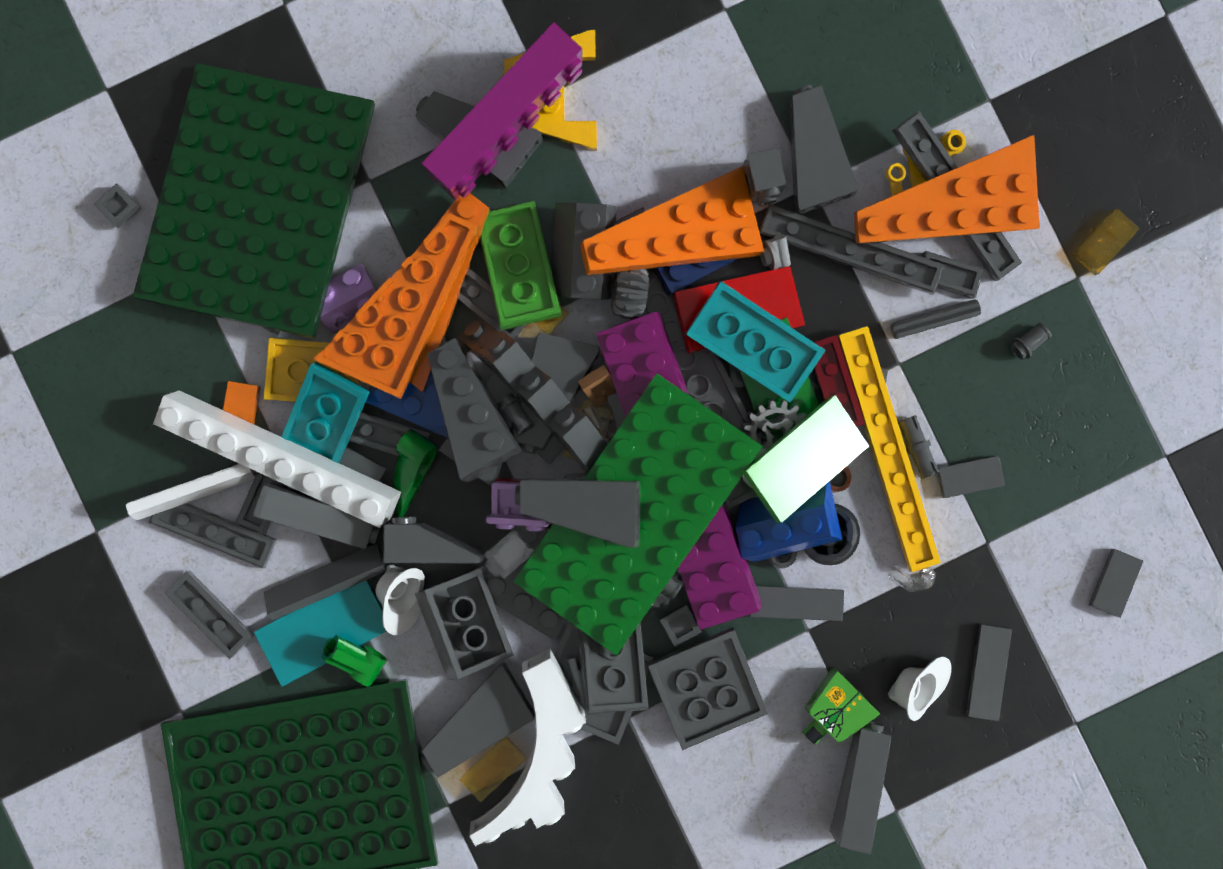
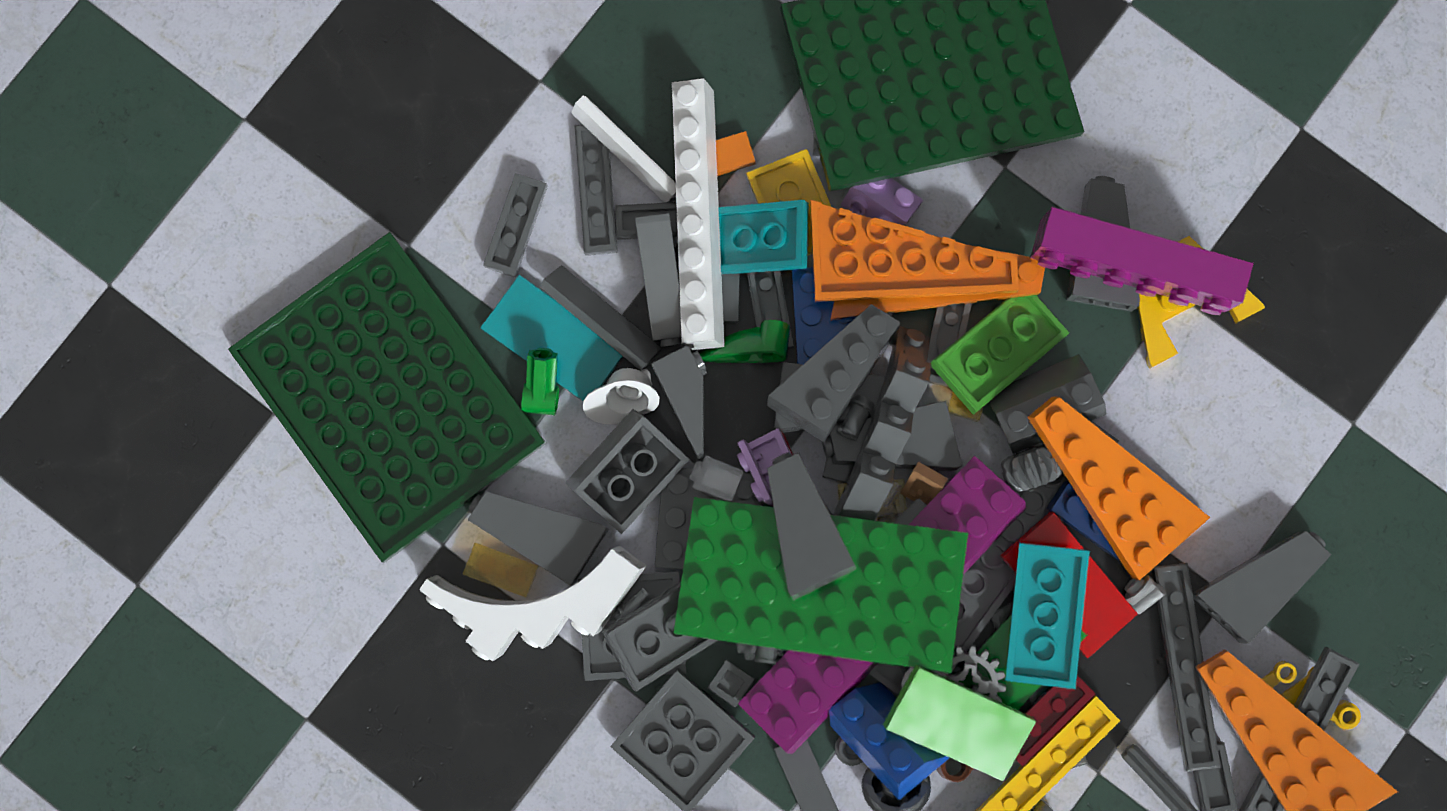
camera: 65 degrees right, 5 degrees down
(764, 176) = (1212, 543): dark grey brick -> none

